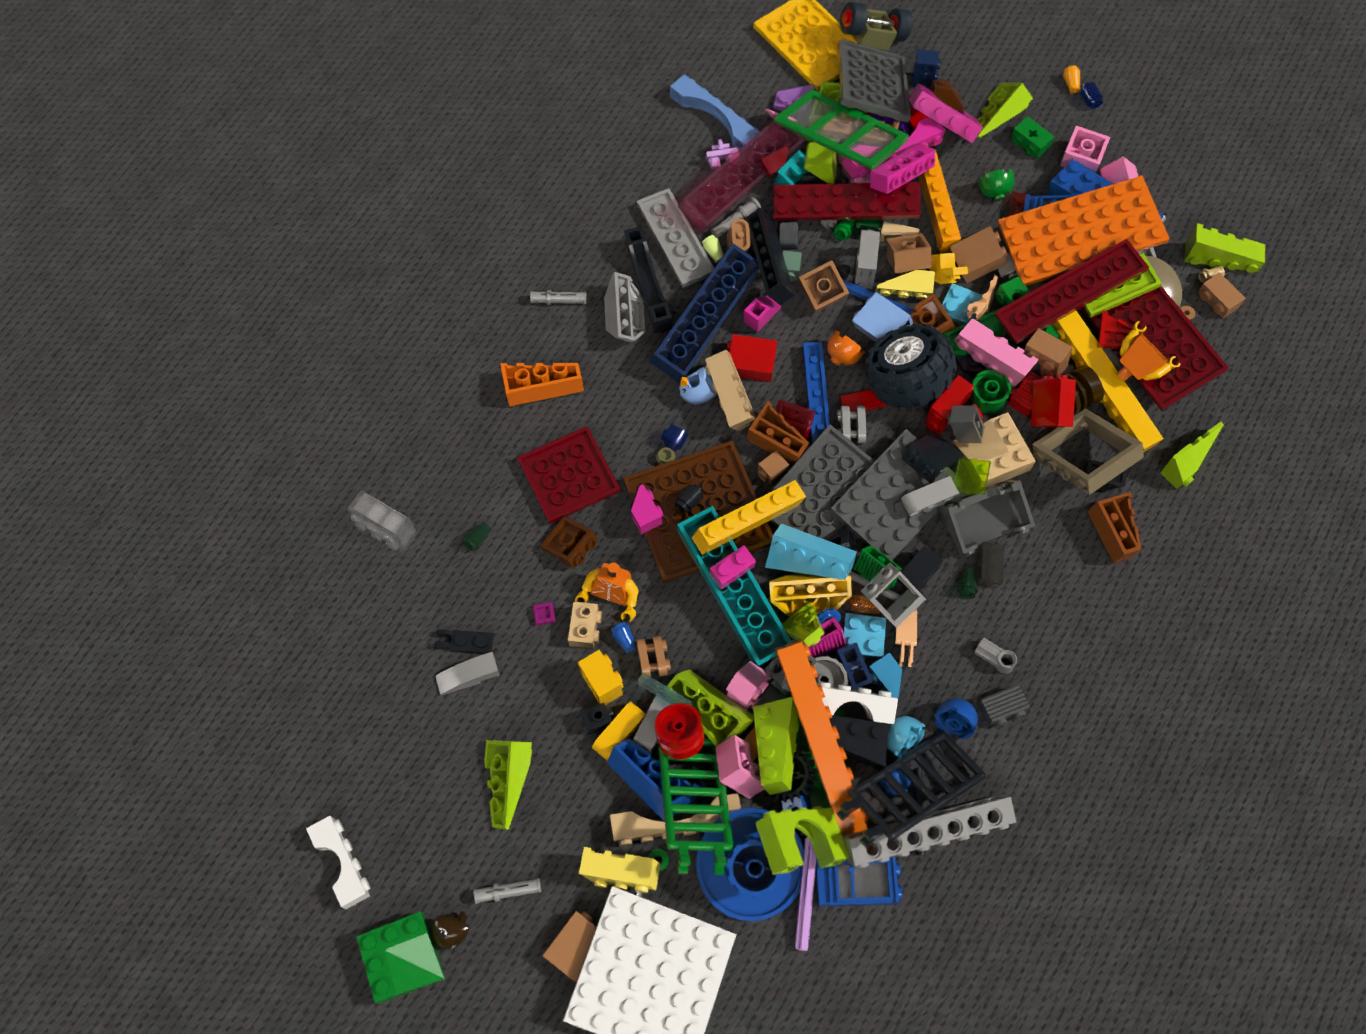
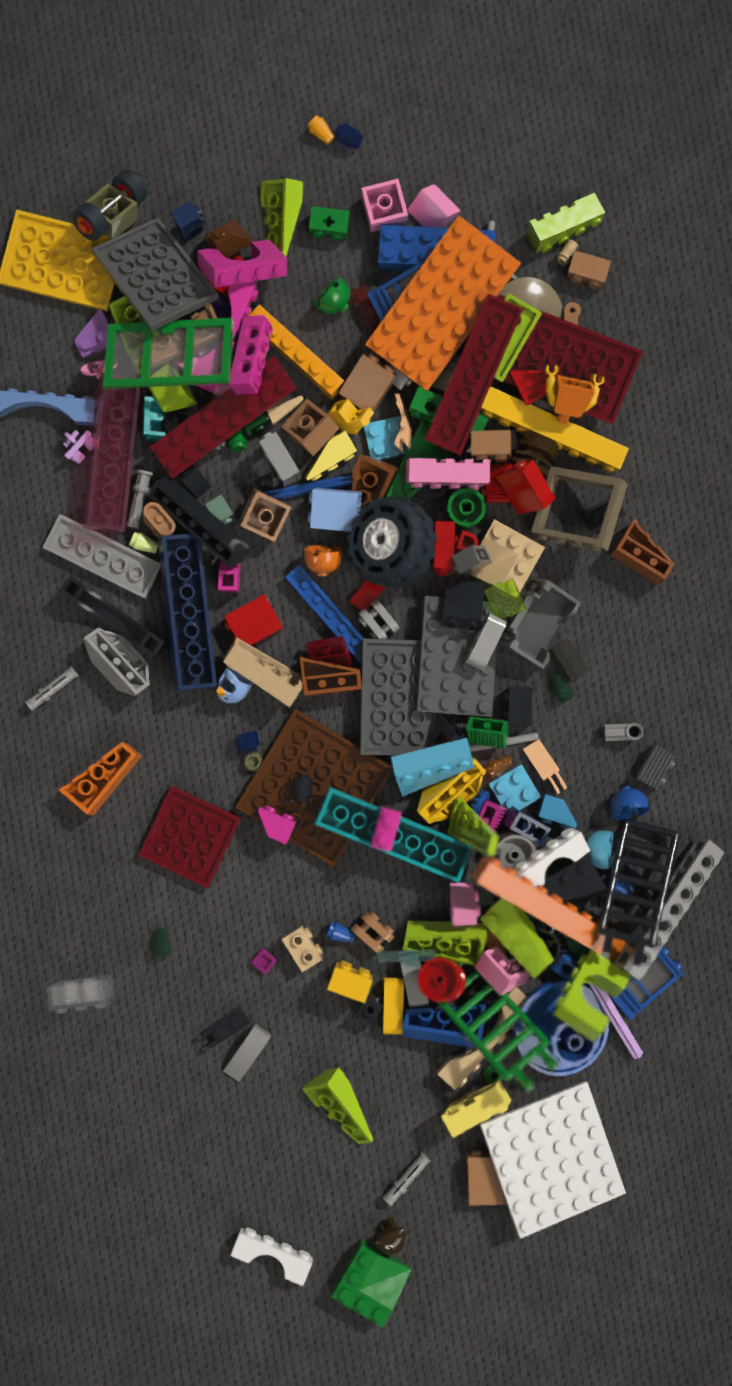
camera: 40 degrees left, 20 degrees up
(569, 542) = (237, 892): reddish brown plate -> none
(613, 585) = (299, 902): torso -> none
(748, 517) = (366, 776): yellow brick -> none
(772, 468) = (344, 708): medium nougat brick -> none
(774, 161) = (133, 423): dark red tile -> none
(911, 598) = (526, 758): light grey window -> none
(1187, 461) = (660, 451): lime wedge -> none

